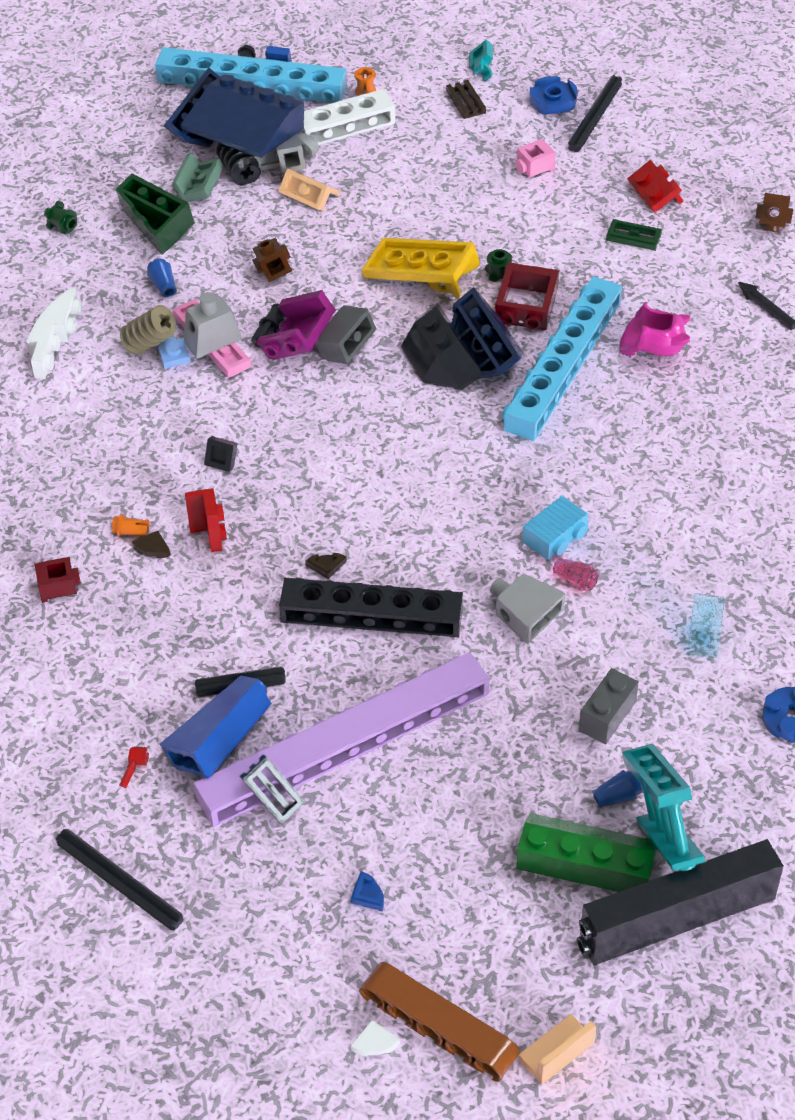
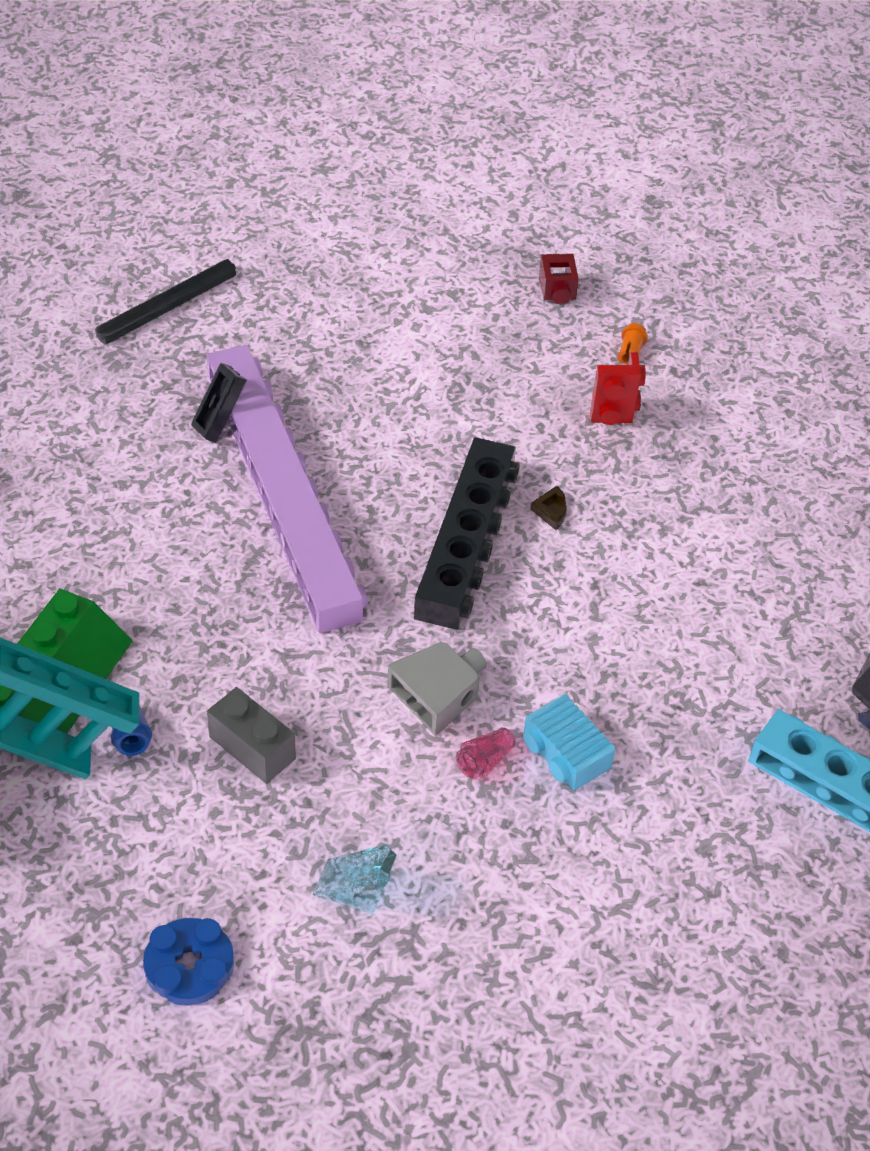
camera: 95 degrees right, 0 degrees up
(136, 756) = (307, 324): red hand -> none
(151, 545) = (601, 355): dark brown tile -> none
(216, 684) = (389, 413): black axle -> none
(217, 728) = (316, 373): blue slope -> none
(220, 453) = (740, 428): black tile -> none
(367, 893) = (80, 480): blue tile -> none

